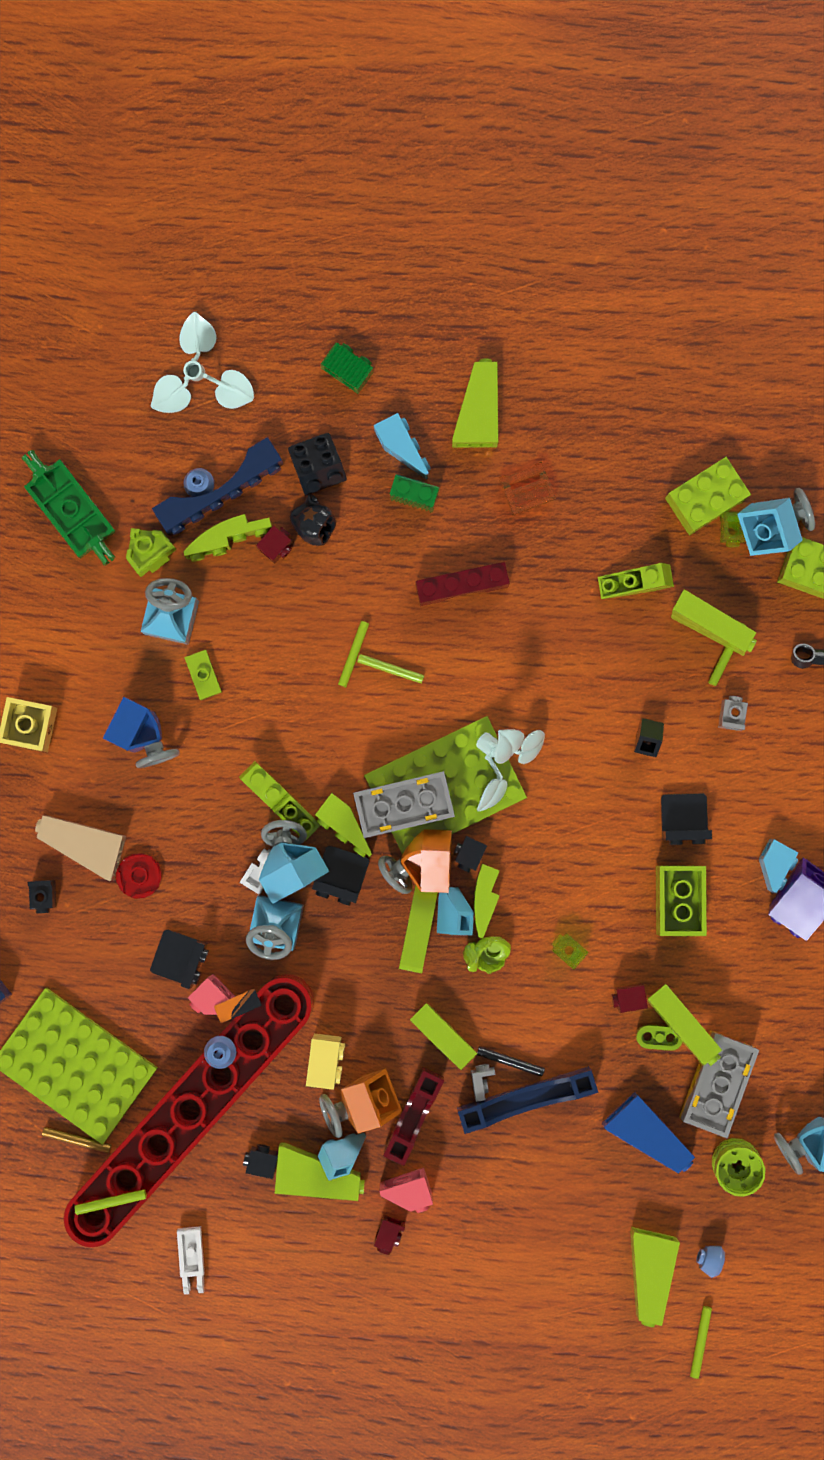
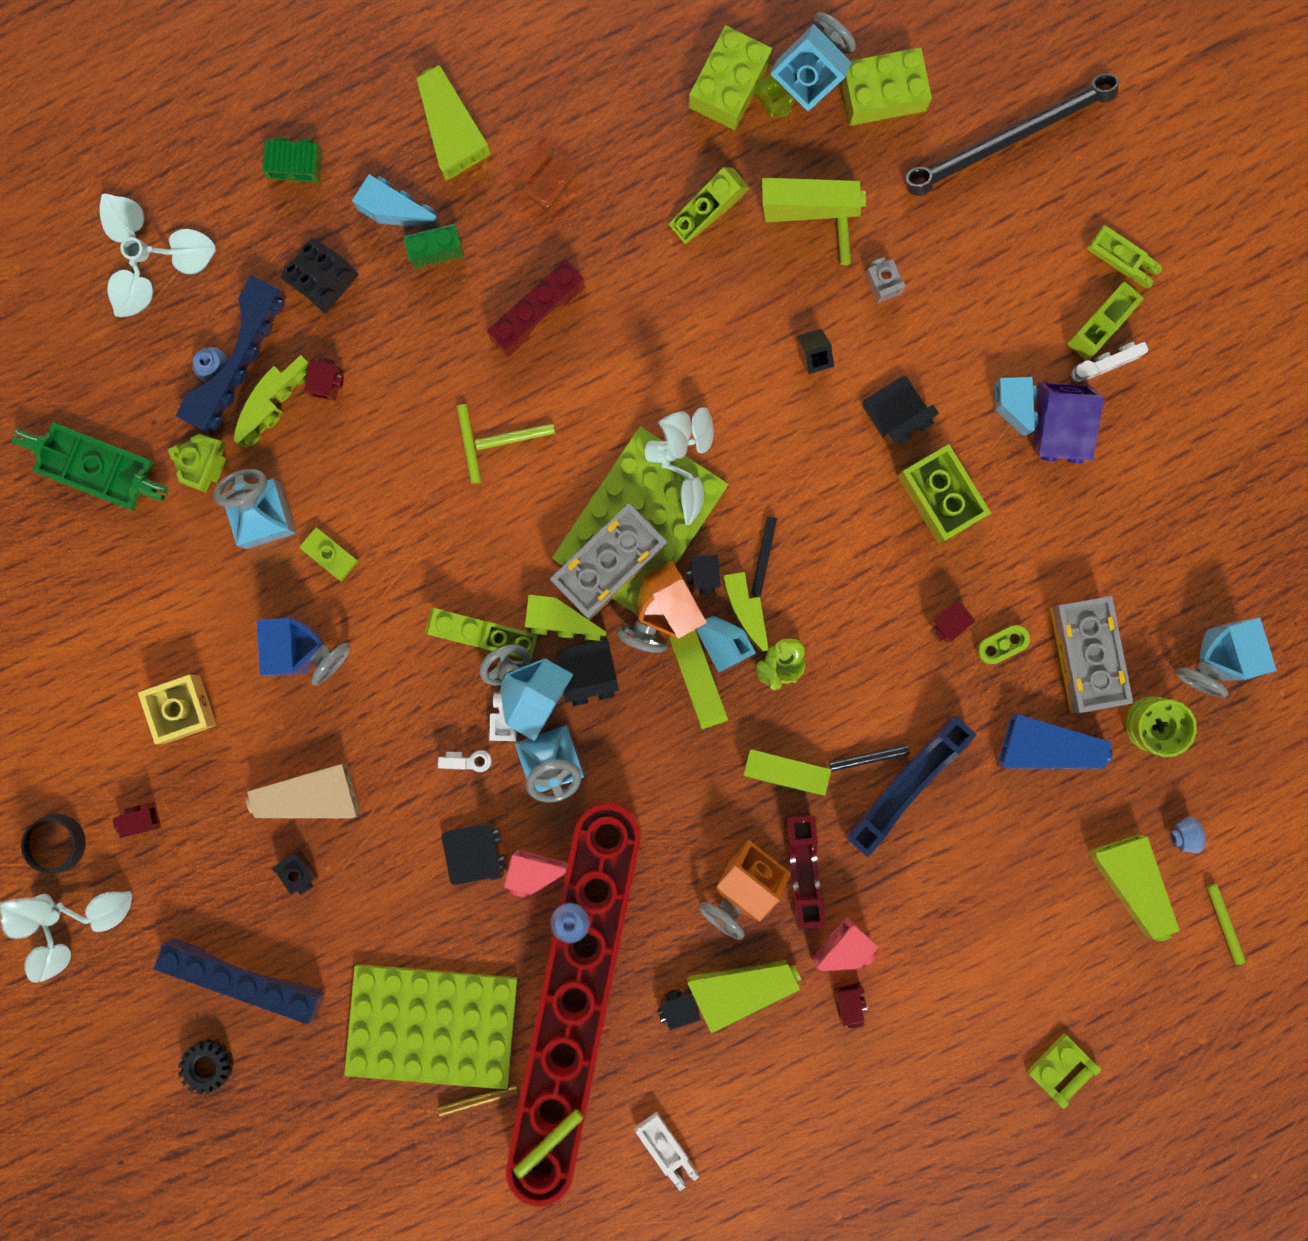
camera: 30 degrees left, 0 degrees up
(139, 875) = (383, 795): red tile -> none
(205, 882) = (455, 761): none -> white plate
(237, 1005) = (559, 865): sticker -> none
(313, 521) = (349, 334): black piece -> none
(323, 1061) = (682, 870): light yellow brick -> none
(340, 1155) = (755, 955): medium azure slope -> none
(480, 1086) = (853, 800): light grey bracket -> none
(514, 1369) = (1057, 1064): none -> lime plate
(521, 866) = (763, 558): none -> black bar
(575, 957) = (870, 619): clear neon green brick -> none
(685, 1026) = (1024, 615): lime slope -> none

